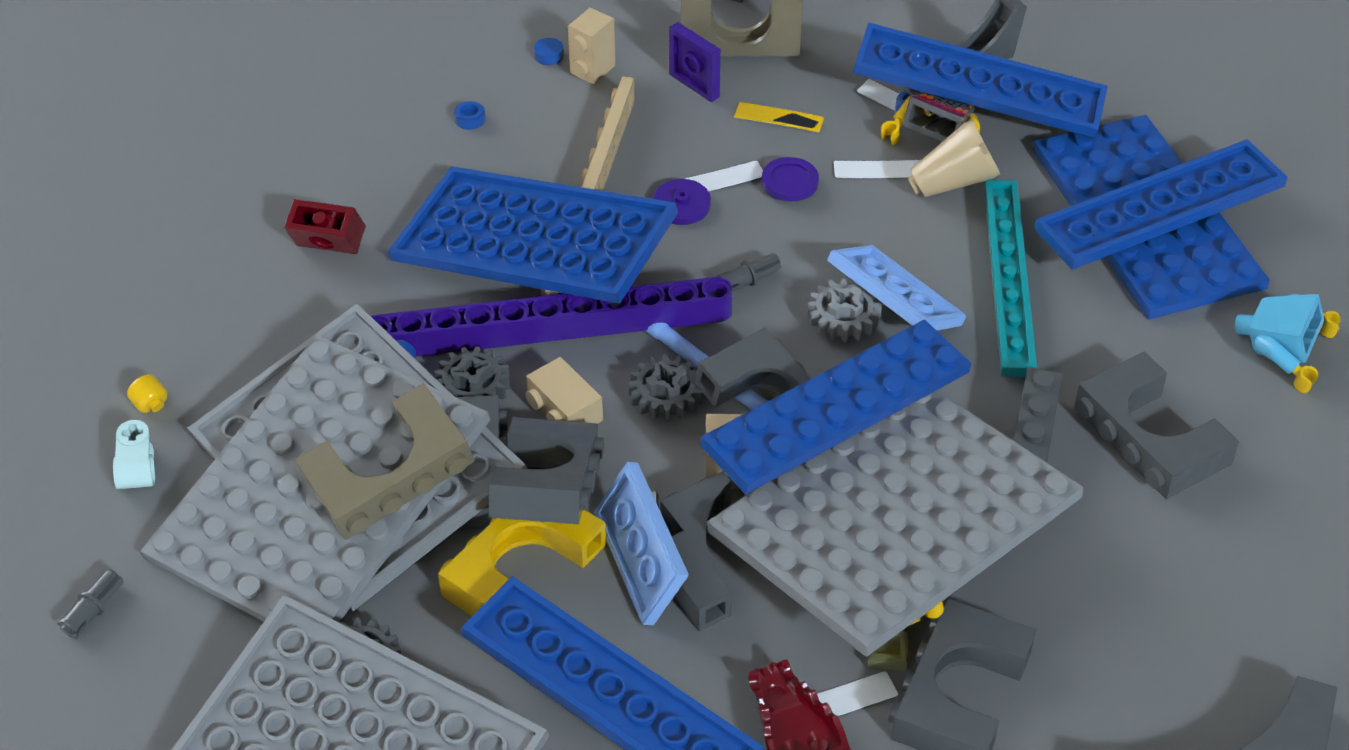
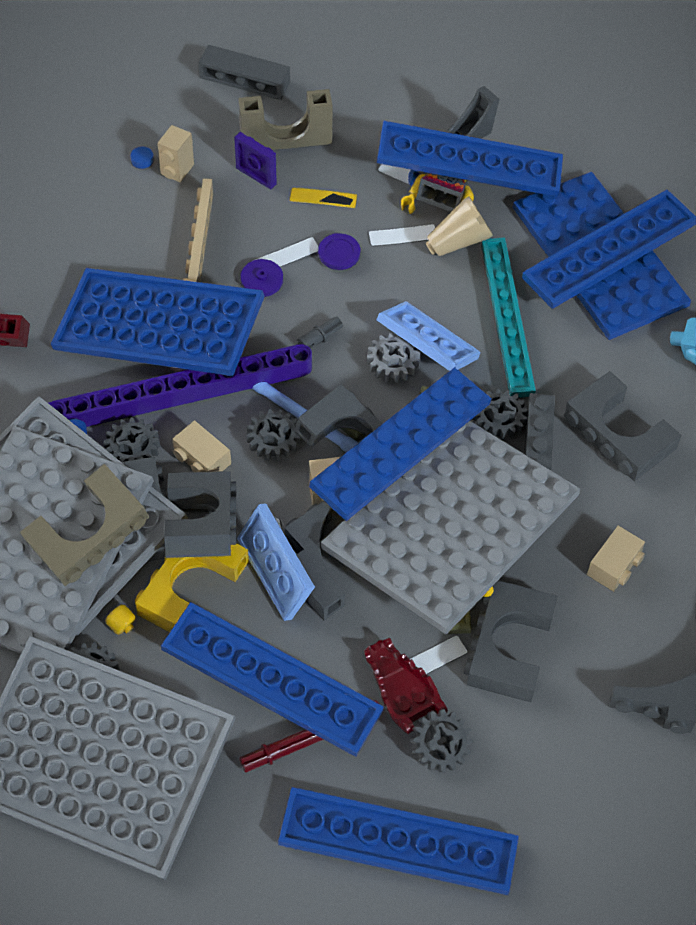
camera: 10 degrees left, 10 degrees up
(415, 596) = (120, 619): none -> yellow piece
(469, 115) = (91, 219): blue tile -> none
(987, 392) = (503, 415): none -> dark grey gear
(1128, 593) = (616, 558): none -> tan brick

